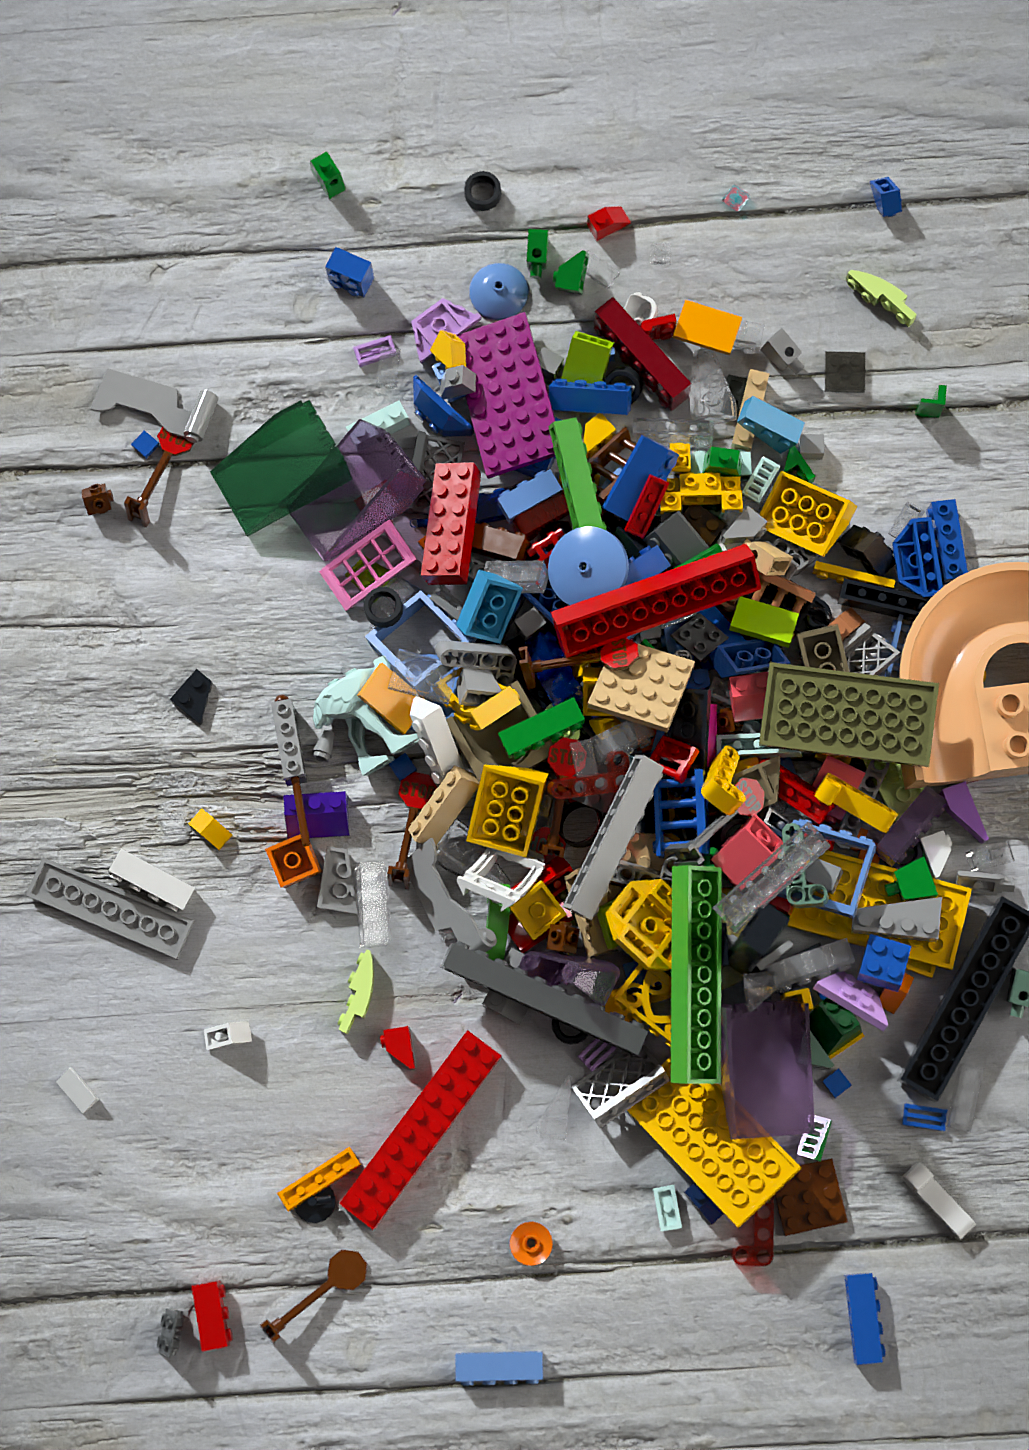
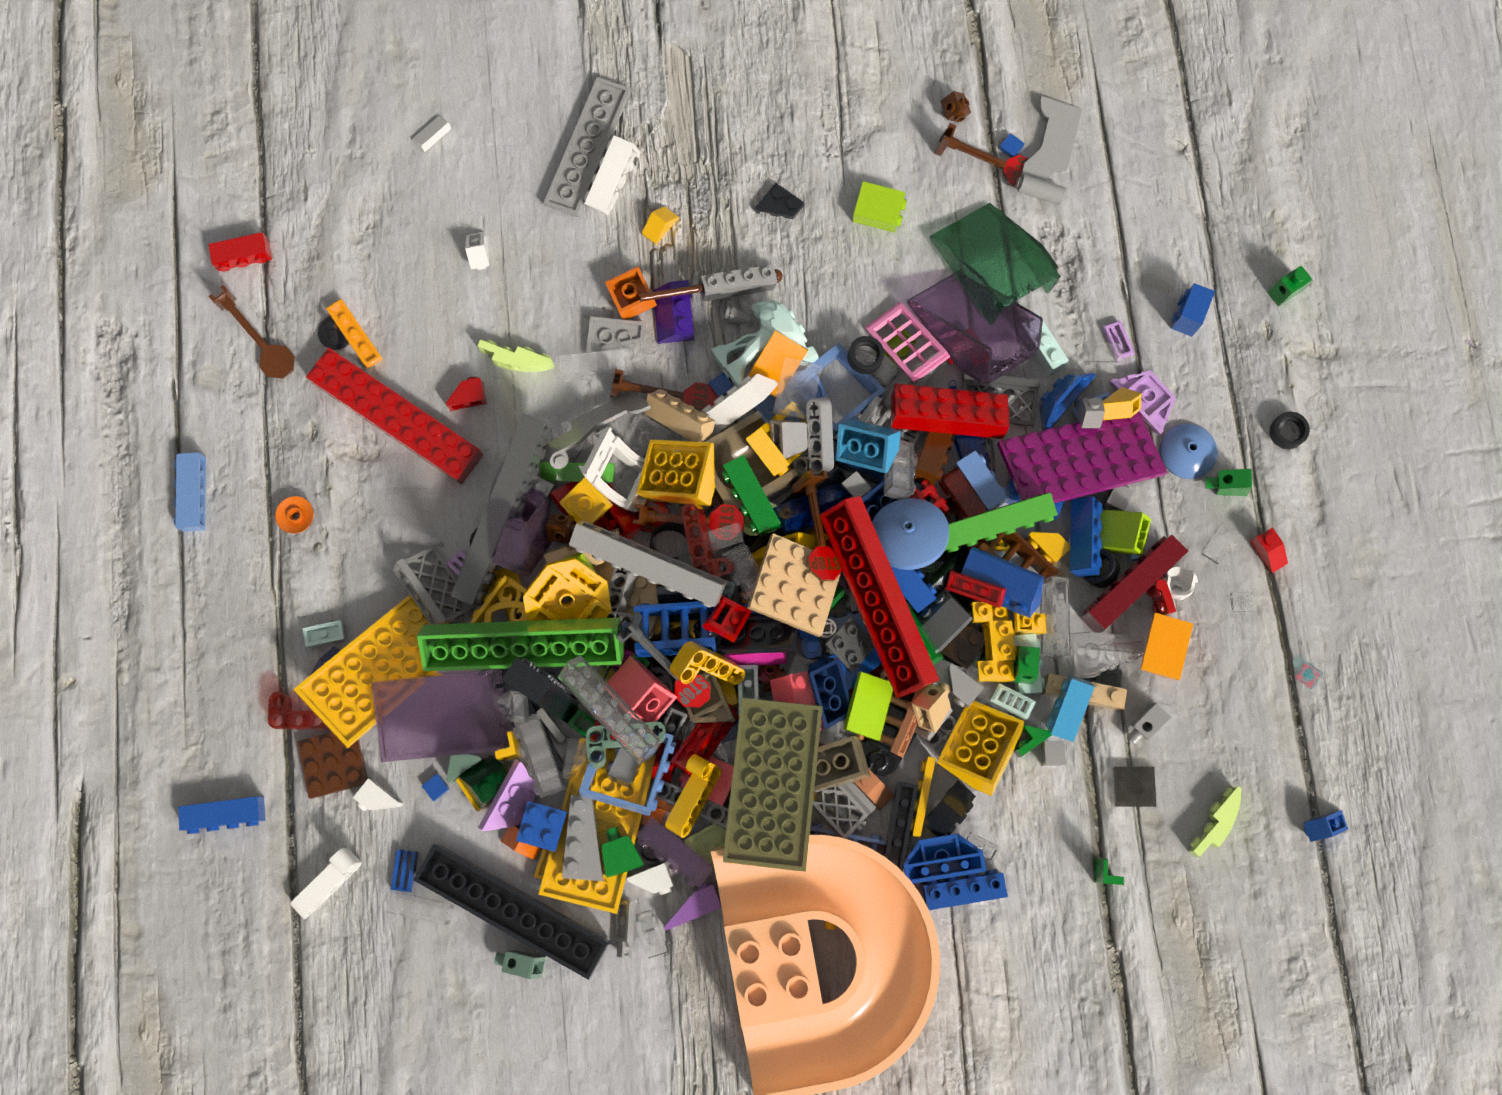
camera: 85 degrees right, 0 degrees up
(166, 1343) = (227, 220): dark grey hinge -> none
(208, 587) = (879, 207): none -> lime brick
(572, 273) = (1208, 513): green slope -> none
(810, 926) = (575, 758): none -> clear slope
(819, 1147) = (375, 771): slope -> none
(848, 1147) = (375, 797): none -> white slope

